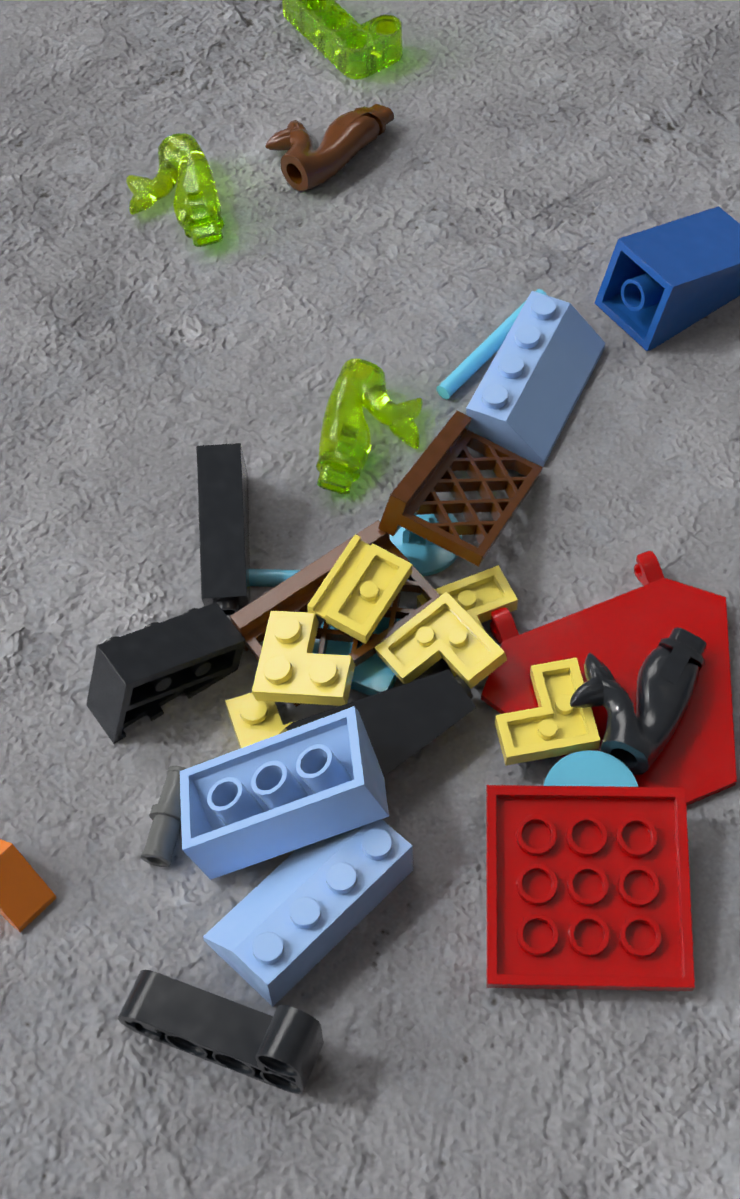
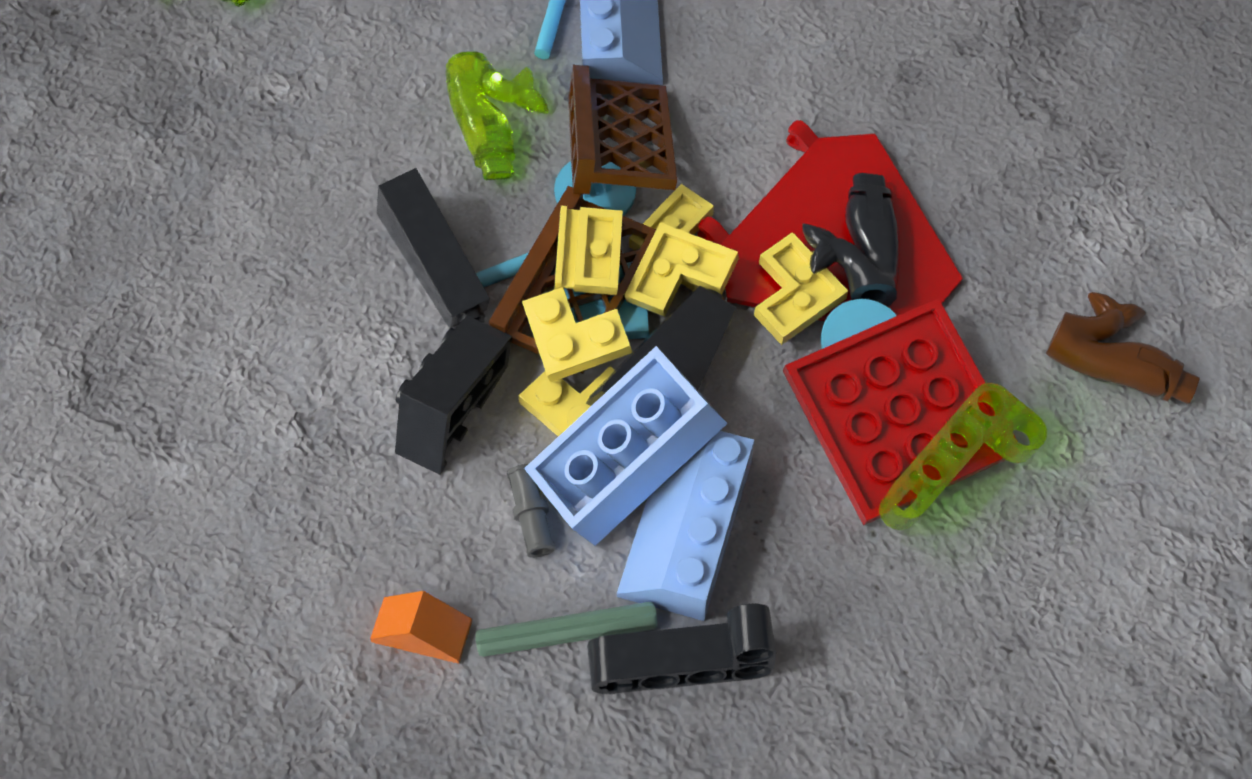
camera: 30 degrees left, 5 degrees up
(134, 948) = (566, 629): none -> sand green axle
(607, 965) = (950, 459): none -> clear neon green beam

